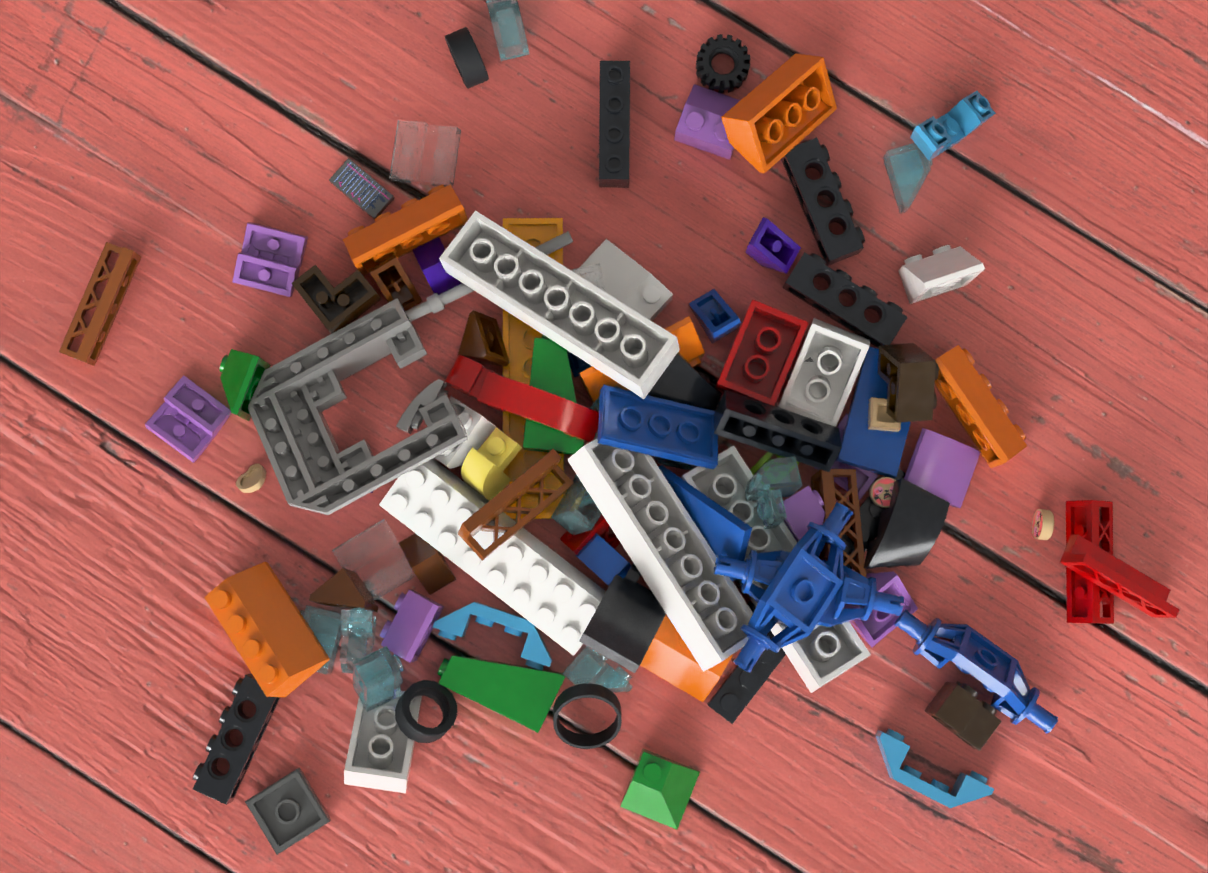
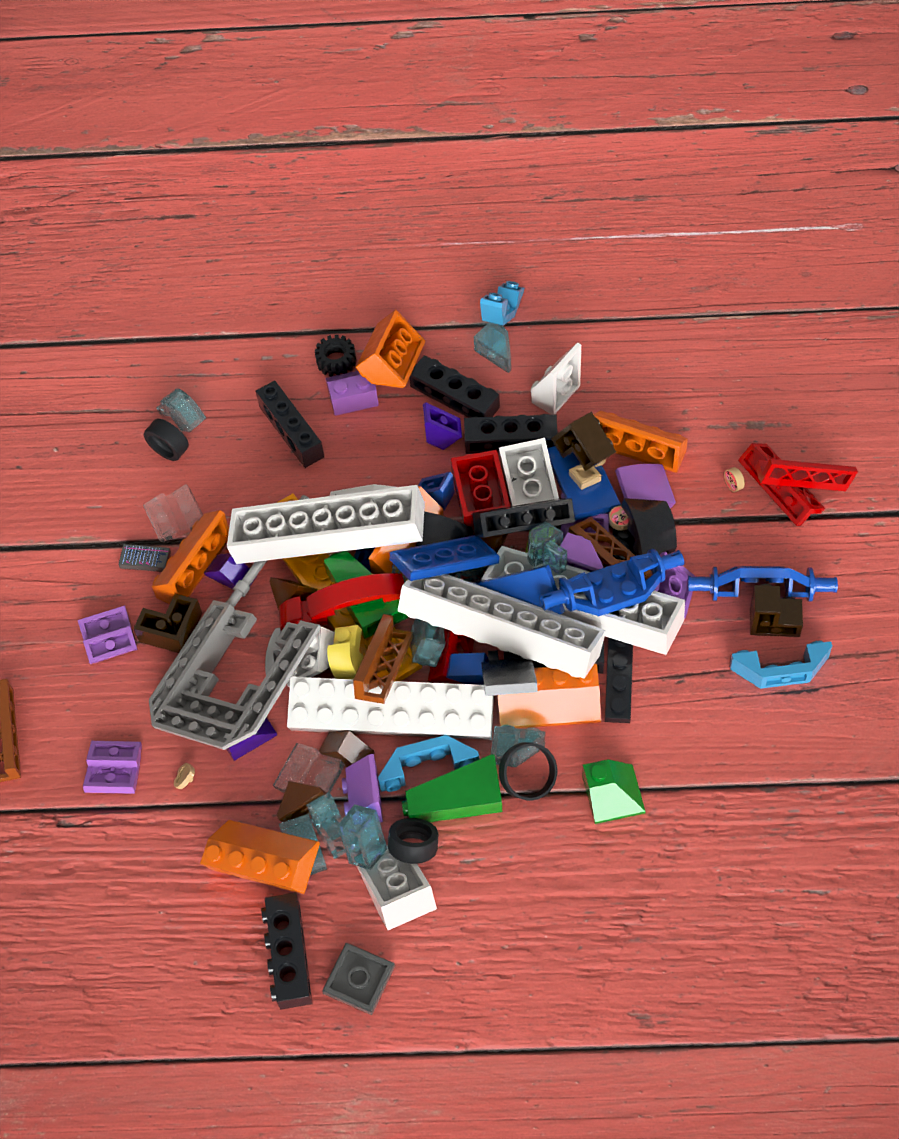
camera: 30 degrees left, 25 degrees down
(240, 379) = (134, 712): green slope -> none
(395, 283) = (203, 590): reddish brown slope -> none
(798, 590) = (607, 584): blue plate -> none

